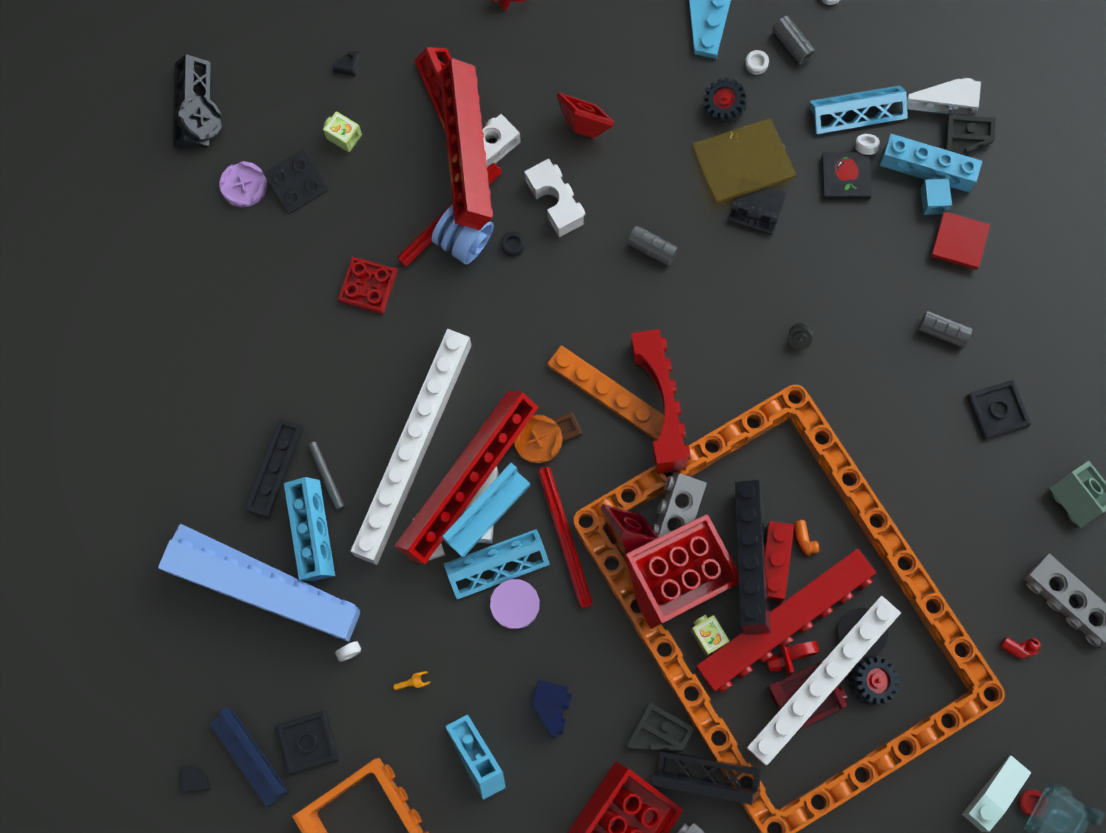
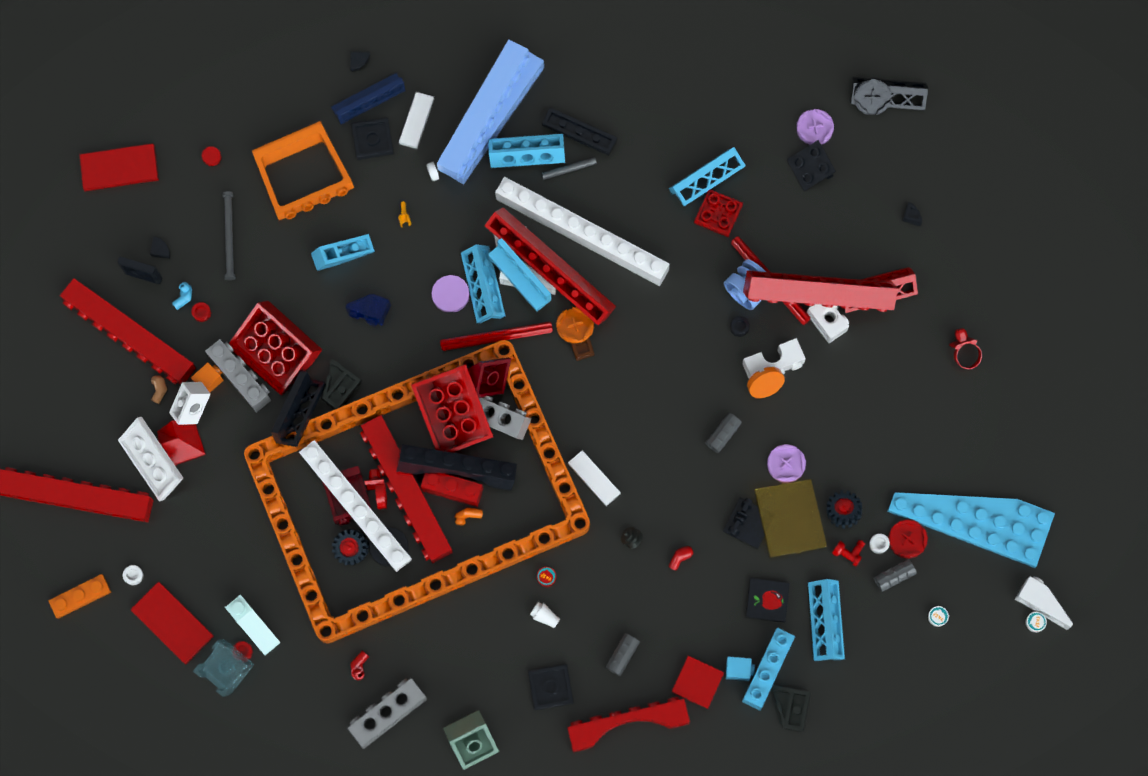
camera: 95 degrees right, 0 degrees up
(275, 685) = (416, 120): none -> white tile
(317, 309) = (707, 168): none -> medium azure fence
(342, 131) = (850, 204): yellowish green brick -> none
(584, 116) = (843, 391): red slope -> none
(586, 202) = (765, 383): none -> orange tile
(607, 392) = (603, 387): orange plate -> none
(669, 450) = (548, 416): red arch -> none
(677, 173) = (786, 463): none -> lavender tile
(709, 634) = (404, 430): yellowish green brick -> none
(731, 391) = (594, 478): none -> white tile
(746, 32) = (907, 539): none -> red tile
(772, 102) = (851, 556): none -> red piece
(811, 276) = (680, 555): none -> red arm
(865, 432) = (546, 576): none -> red tile
(867, 144) = (792, 621): white tile -> none
(913, 429) = (544, 615): none -> white cone
(952, 98) = (827, 699): white slope -> none
(1048, 356) = (668, 714): none -> red arch

